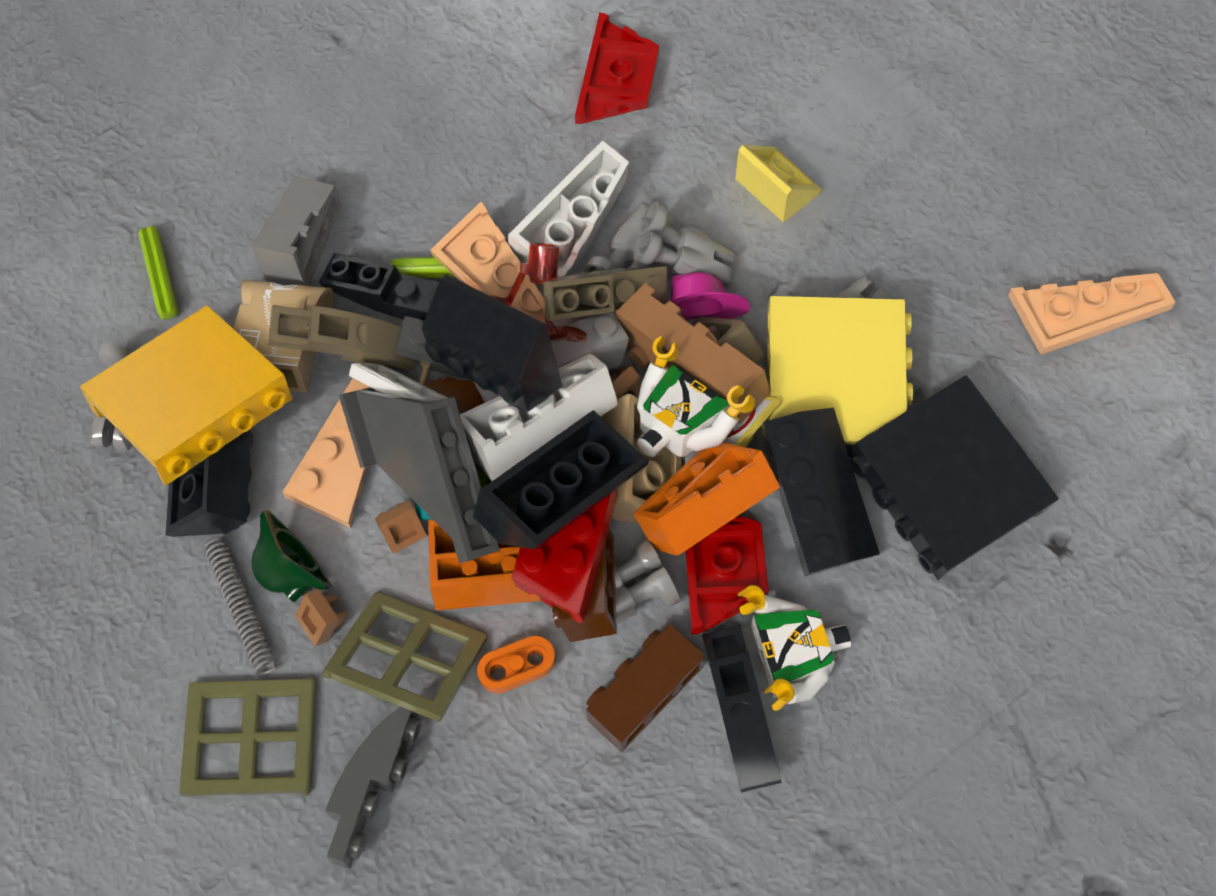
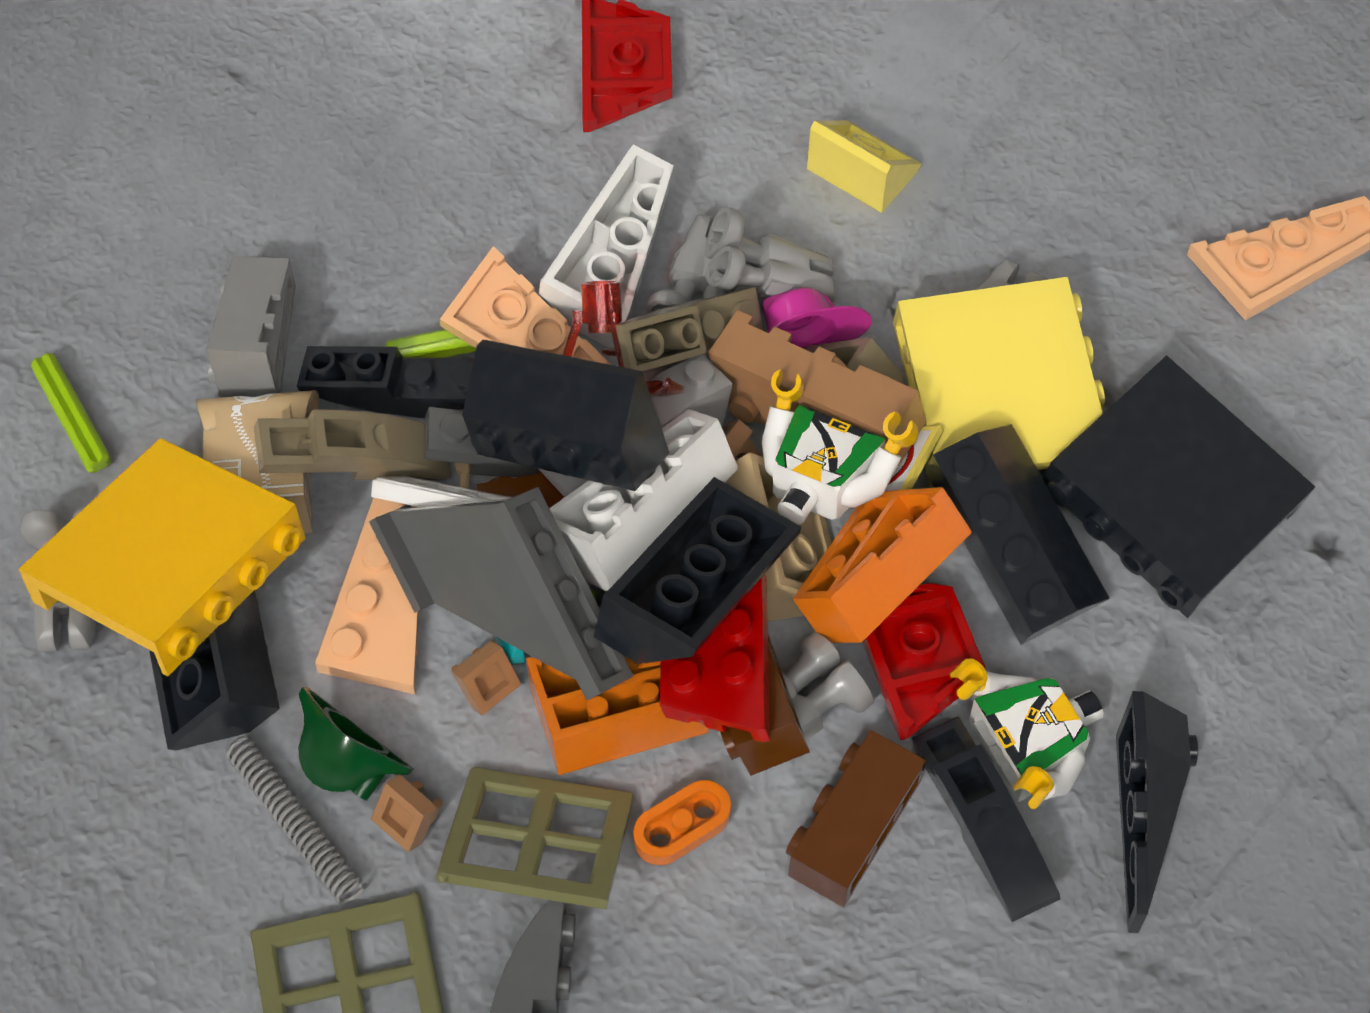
camera: 15 degrees left, 5 degrees down
(878, 696) = (1152, 774): none -> black wedge

